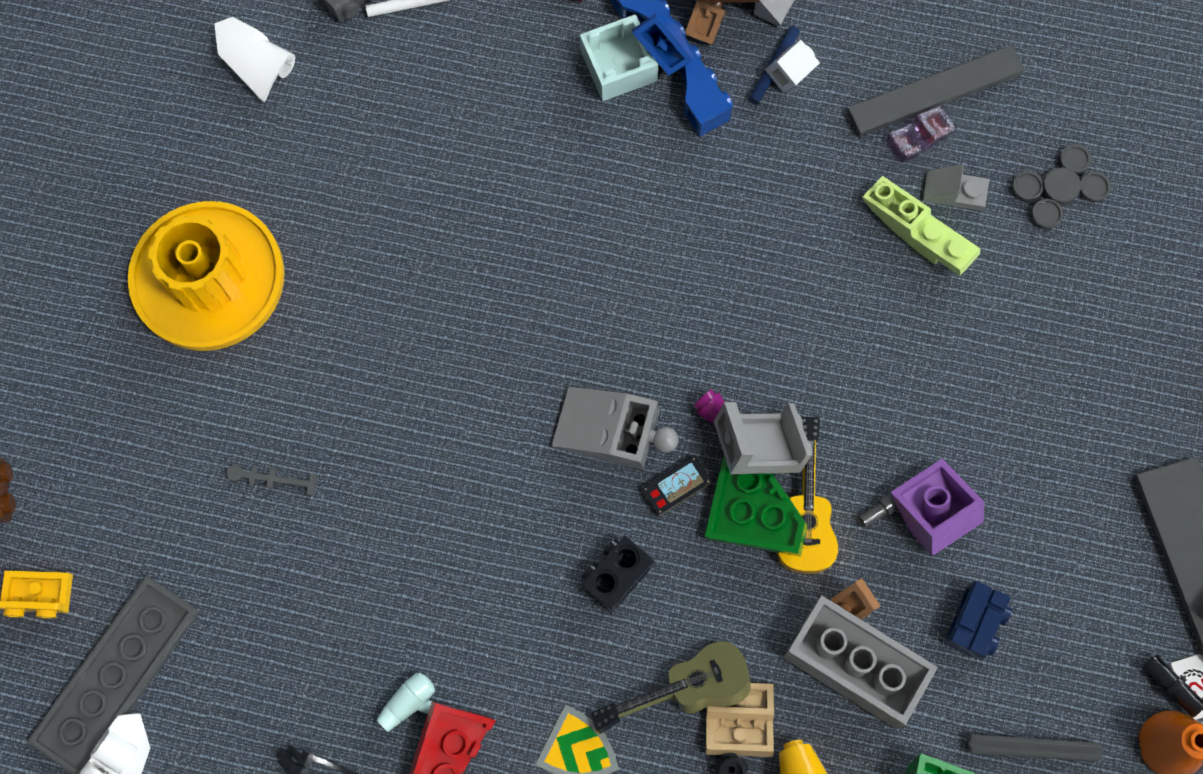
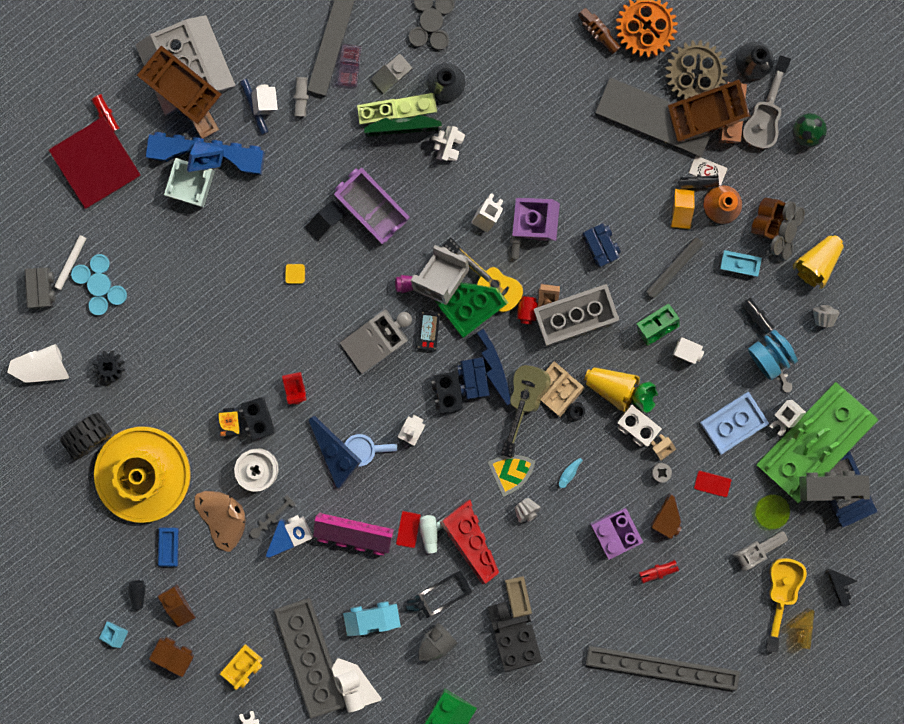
camera: 55 degrees left, 15 degrees up
(41, 384) = (136, 593): none -> black cone
(60, 445) = (176, 606): none -> reddish brown slope
(135, 378) = (168, 546): none -> blue tile
(201, 166) = (86, 436): none -> black tyre
(223, 417) = (221, 518): none -> medium nougat piece
(230, 721) = (379, 618): none -> medium azure brick
(249, 510) = (281, 540): none -> blue slope
(278, 523) = (298, 530): none -> white brick
(310, 125) = (109, 373): none -> black gear
(327, 595) = (353, 533): none -> dark pink slope
(335, 402) = (245, 469): none -> white wheel
(356, 328) = (229, 422): none -> brick
(390, 670) = (408, 529): none -> red sticker
(396, 362) = (263, 416): none -> black brick
(408, 53) = (99, 284): none -> medium azure piece
(418, 498) = (338, 456): none -> dark blue wing
(450, 522) = (365, 449): none -> light blue piece
(464, 374) = (294, 388): none -> red bracket
(528, 566) = (412, 429): none -> white brick
(611, 266) = (295, 273): none -> yellow piece
(663, 593) = (474, 378): none -> dark blue brick
(694, 618) = (497, 373): none -> dark blue slope
(709, 249) = (325, 220): none -> black slope
(775, 289) = (371, 205): none -> clear door
(809, 589) = (526, 310): none -> red brick
(833, 106) = (301, 96): none -> light grey pin
(889, 438) = (487, 214): none -> white brick
(907, 245) = (402, 126): none -> dark green slope
(947, 318) = (445, 141): none -> white hips
(1007, 258) = (446, 90): none -> black cone
(1119, 694) = (682, 208): none -> light orange slope

